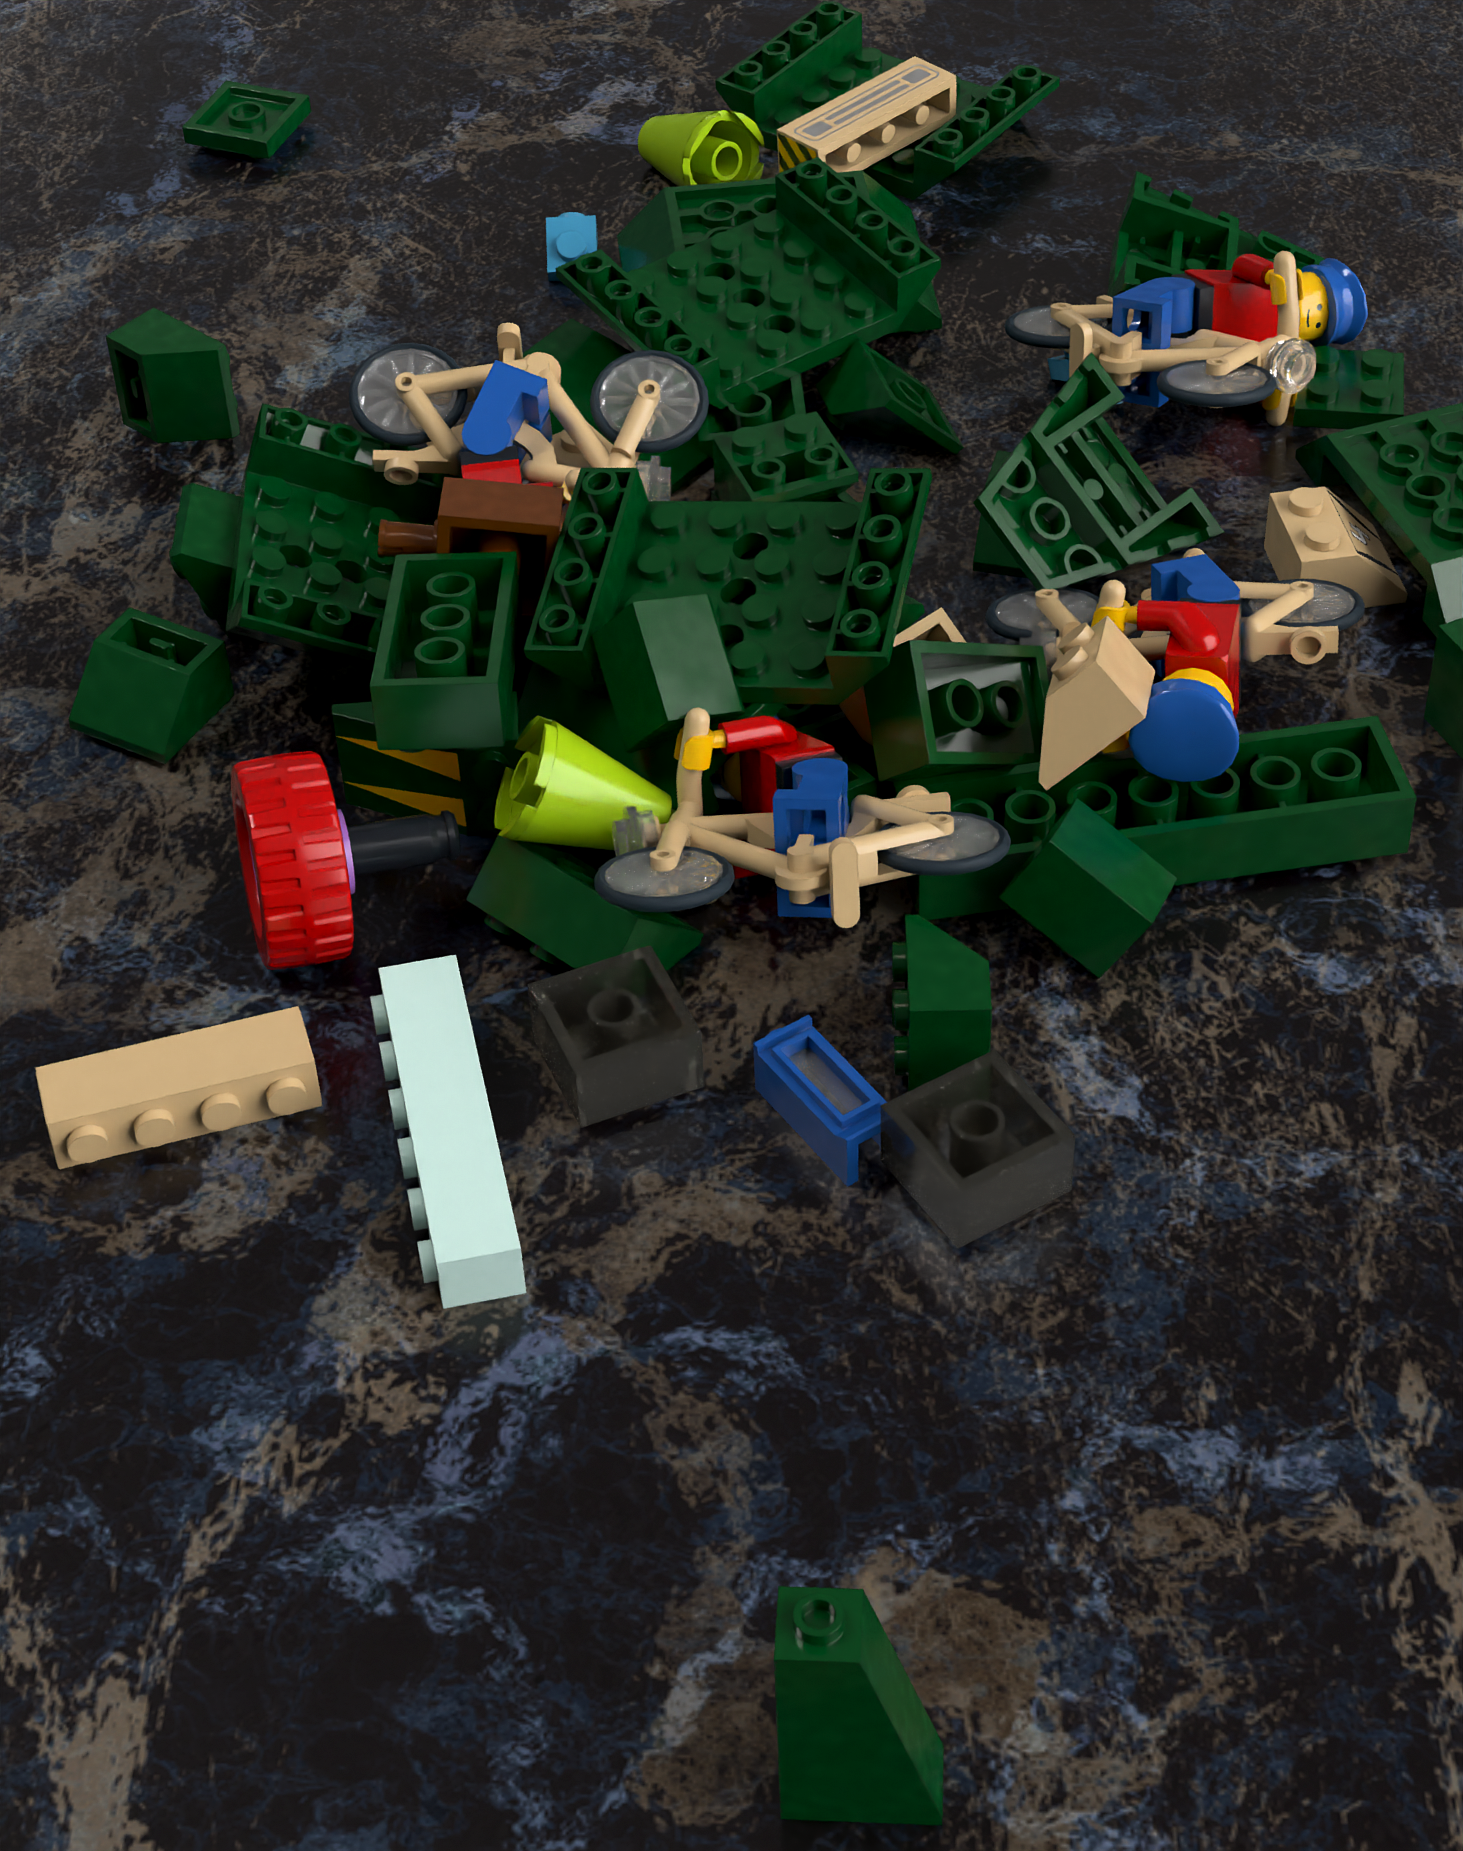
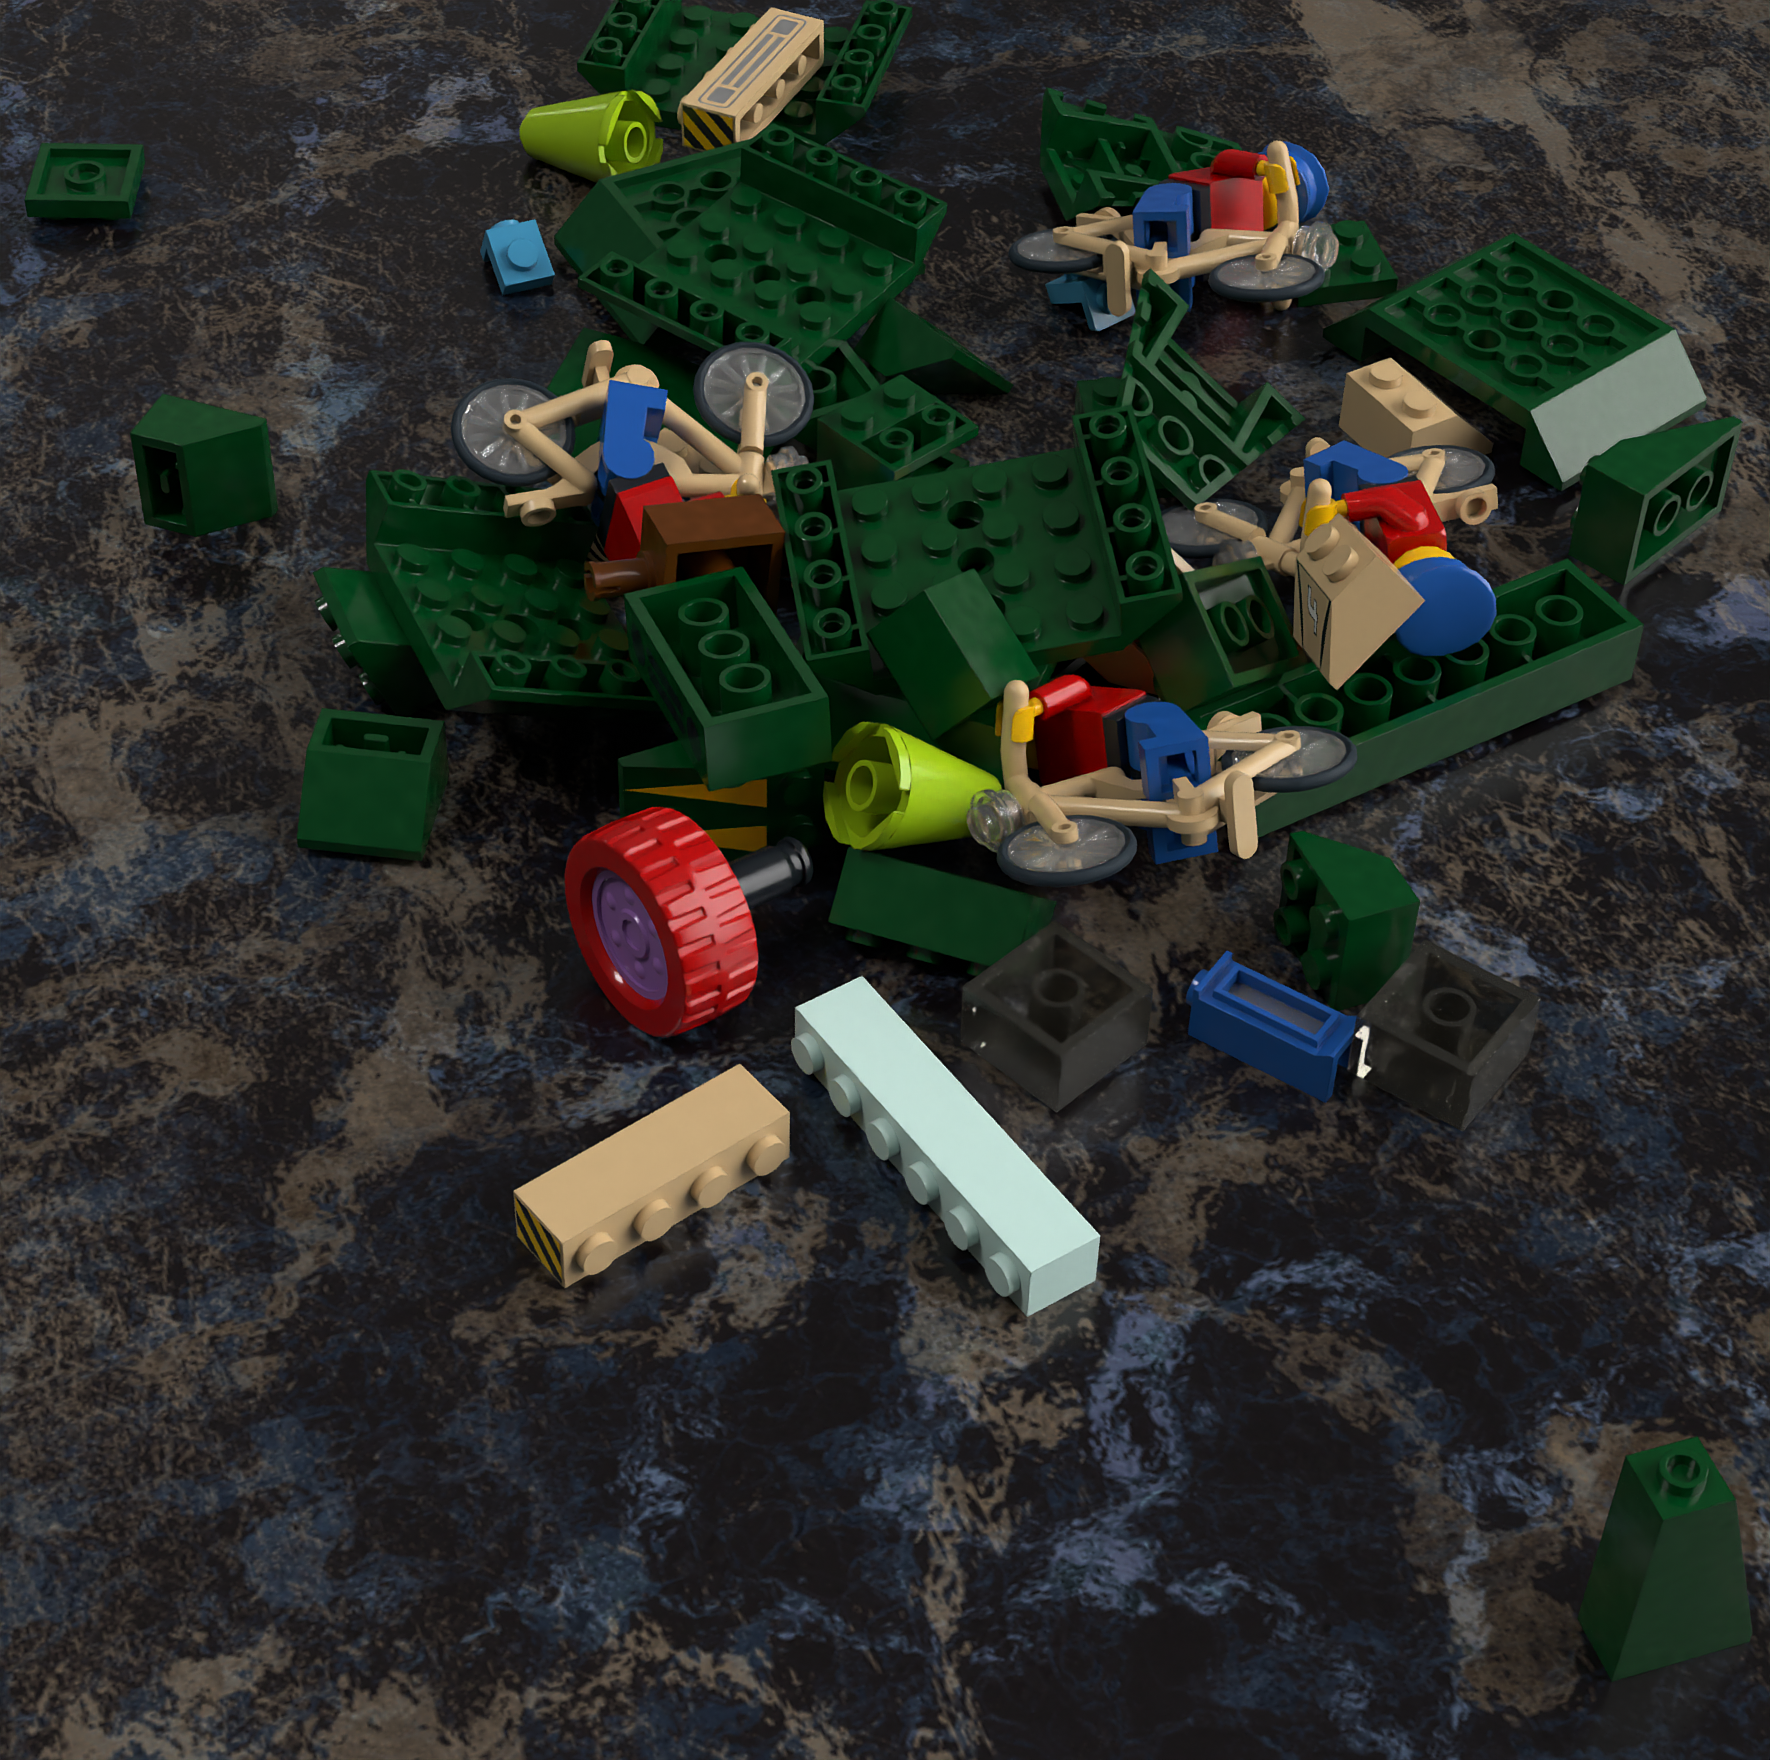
camera: 25 degrees left, 0 degrees up
(1088, 889) = (1410, 776): dark green slope -> none

